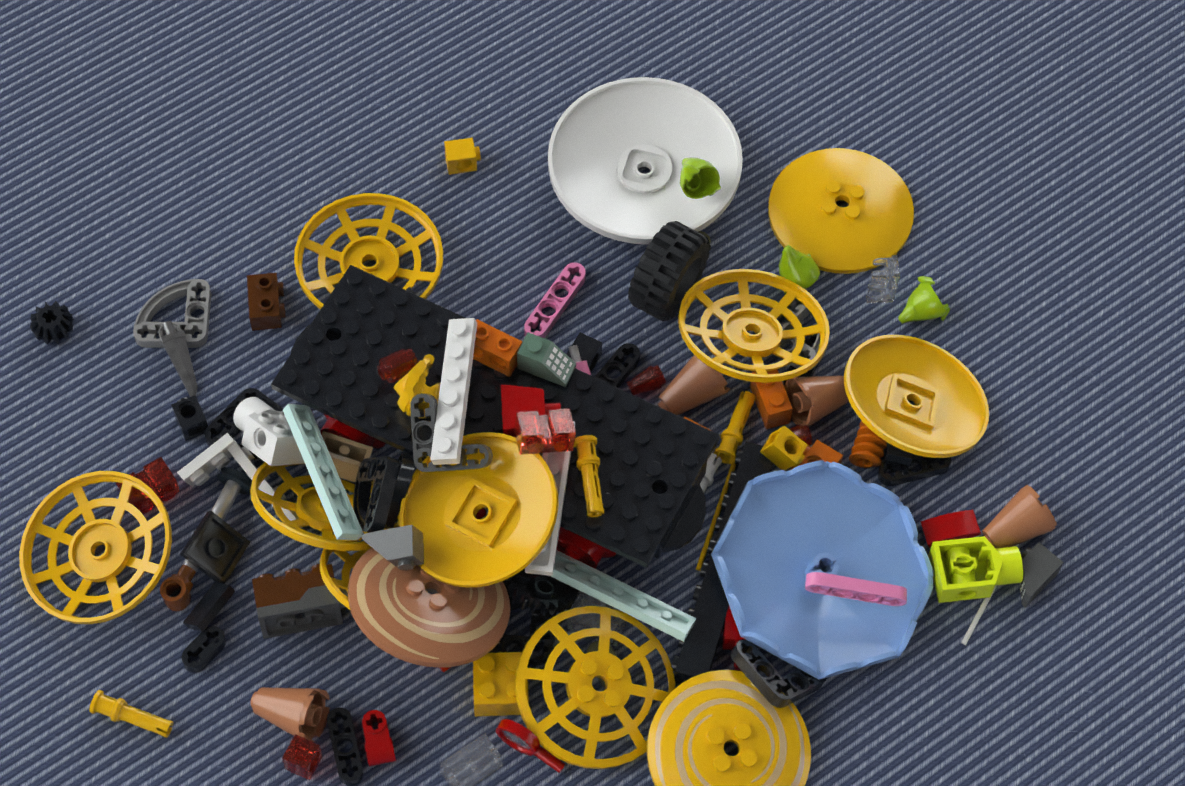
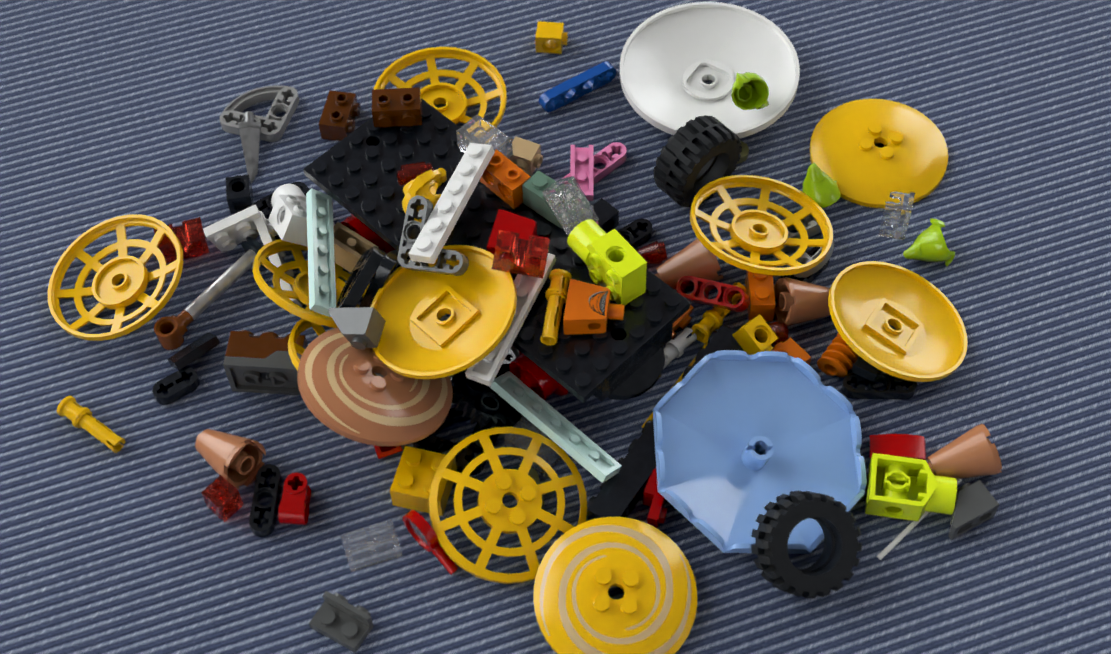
camera: 20 degrees right, 5 degrees down
(51, 322) = (156, 94): black gear -> none
(215, 547) = (216, 302): black tile -> none
(350, 292) = (396, 109): none -> reddish brown brick
(453, 304) = (482, 132): none -> clear brick
(480, 301) = (526, 155): none -> tan brick
(509, 207) = (596, 77): none -> blue beam
(548, 307) = (583, 169): none -> bright pink hinge
(573, 363) = (569, 203): none -> clear brick
(626, 469) = (589, 309): none -> orange torso
(632, 414) = (610, 261): none -> neon yellow brick
(715, 412) = (704, 286): none -> red beam
(746, 653) = (661, 514): black beam -> none
(856, 589) = (778, 473): bright pink beam -> none
(928, 655) = (838, 551): none -> black tyre

